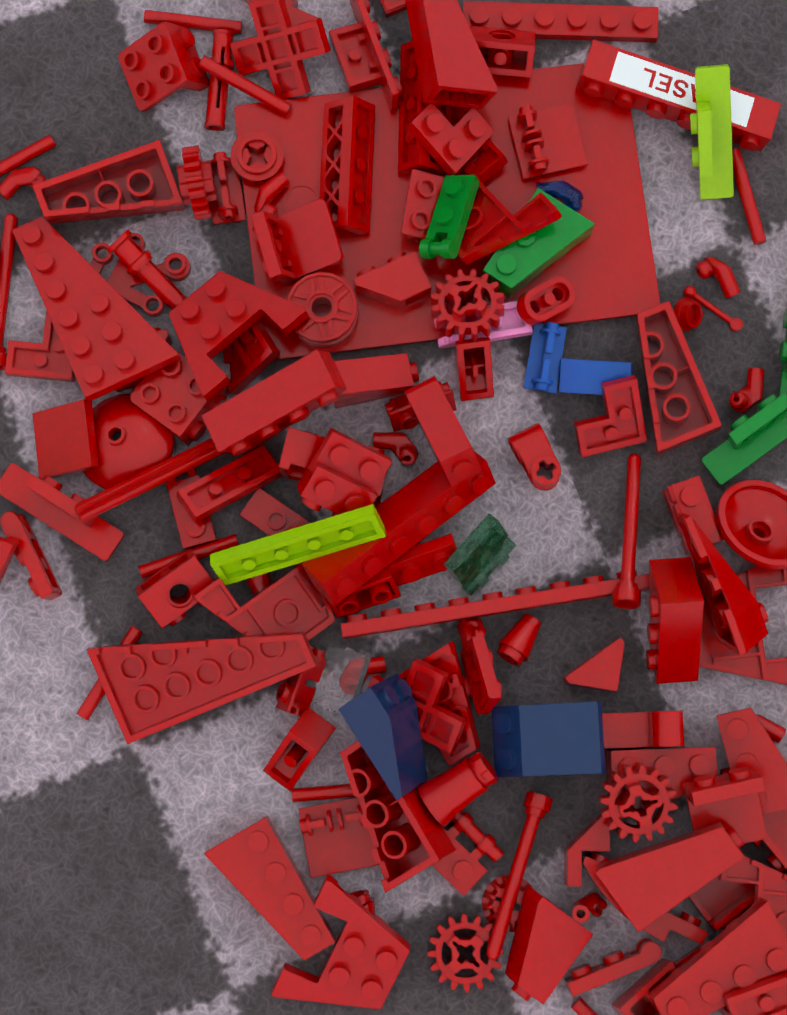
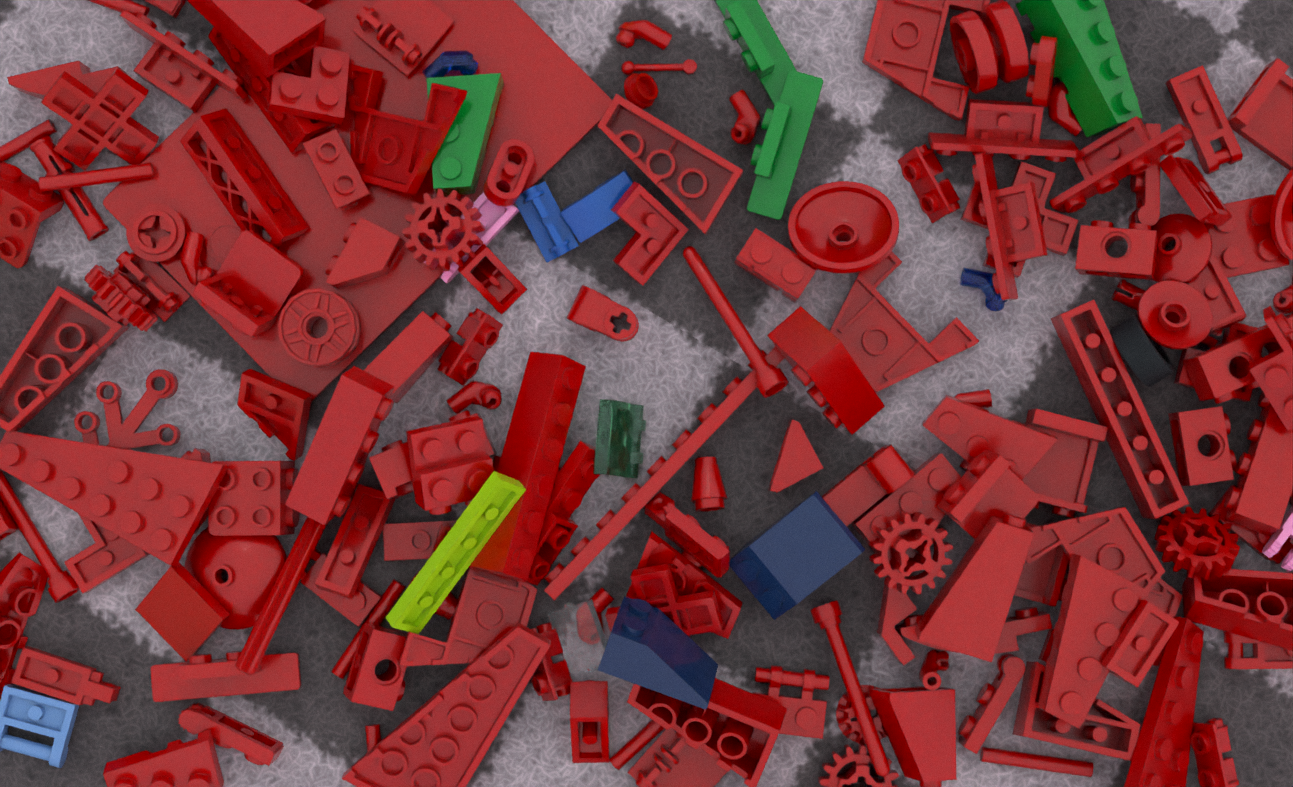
camera: 35 degrees left, 5 degrees up
(140, 263) = (127, 408): red pin -> none
(219, 315) = (232, 404): red wing -> none
(443, 431) = (506, 358): red slope -> none
(450, 217) = (369, 162): green plate -> none
(457, 787) = (749, 654): red plant -> none
(732, 607) = (868, 322): red wedge -> none

